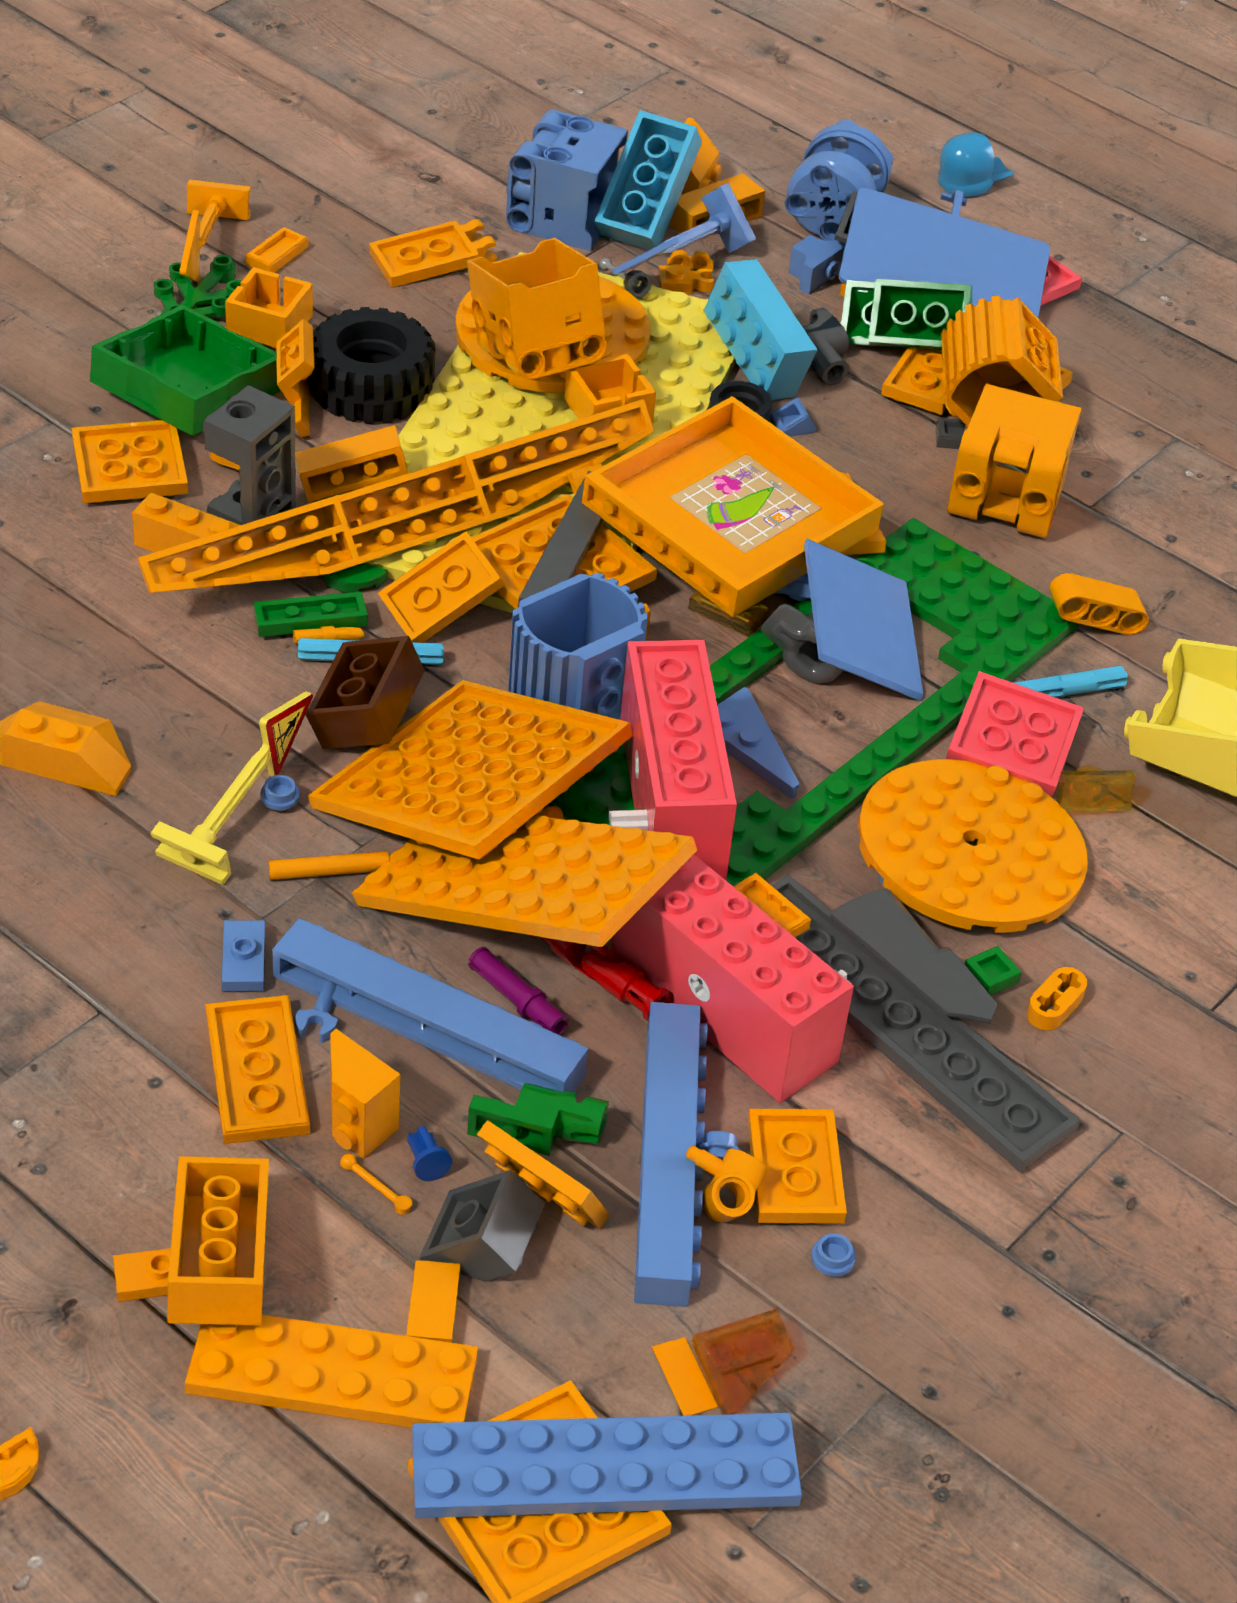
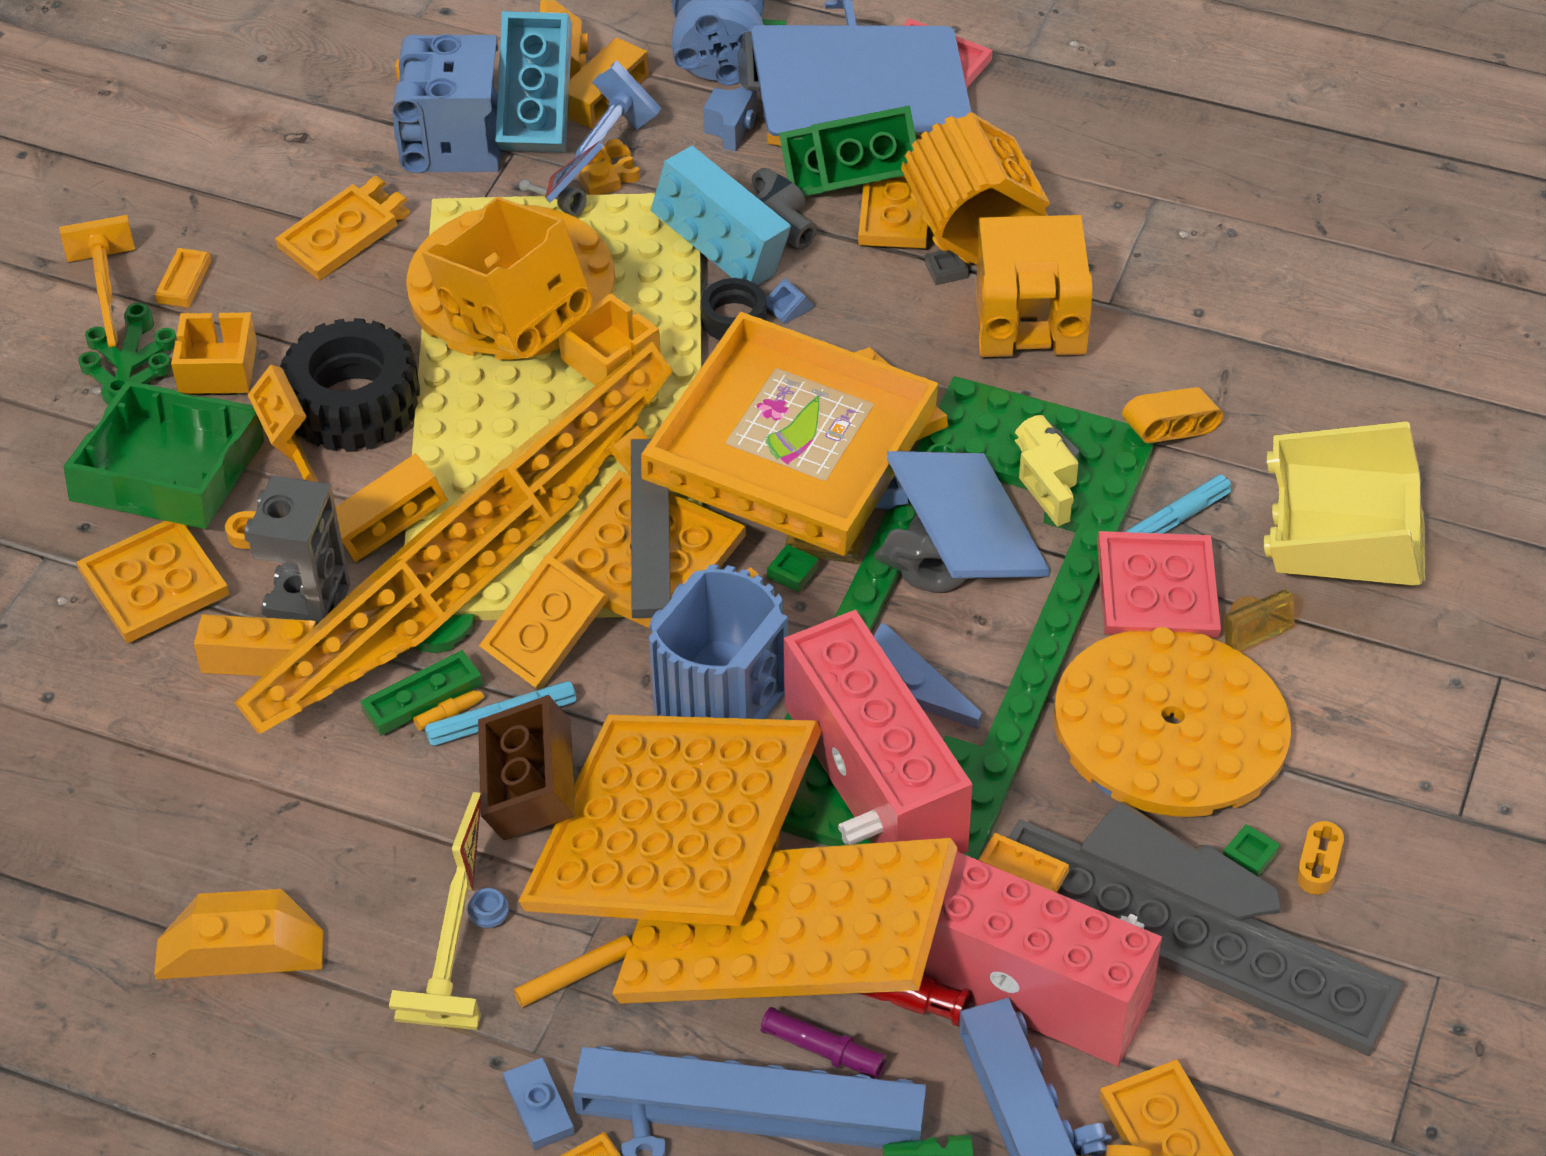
camera: 15 degrees left, 5 degrees up
(687, 620) = (792, 568): none -> green plate
(958, 606) = (1048, 466): none -> light yellow plate

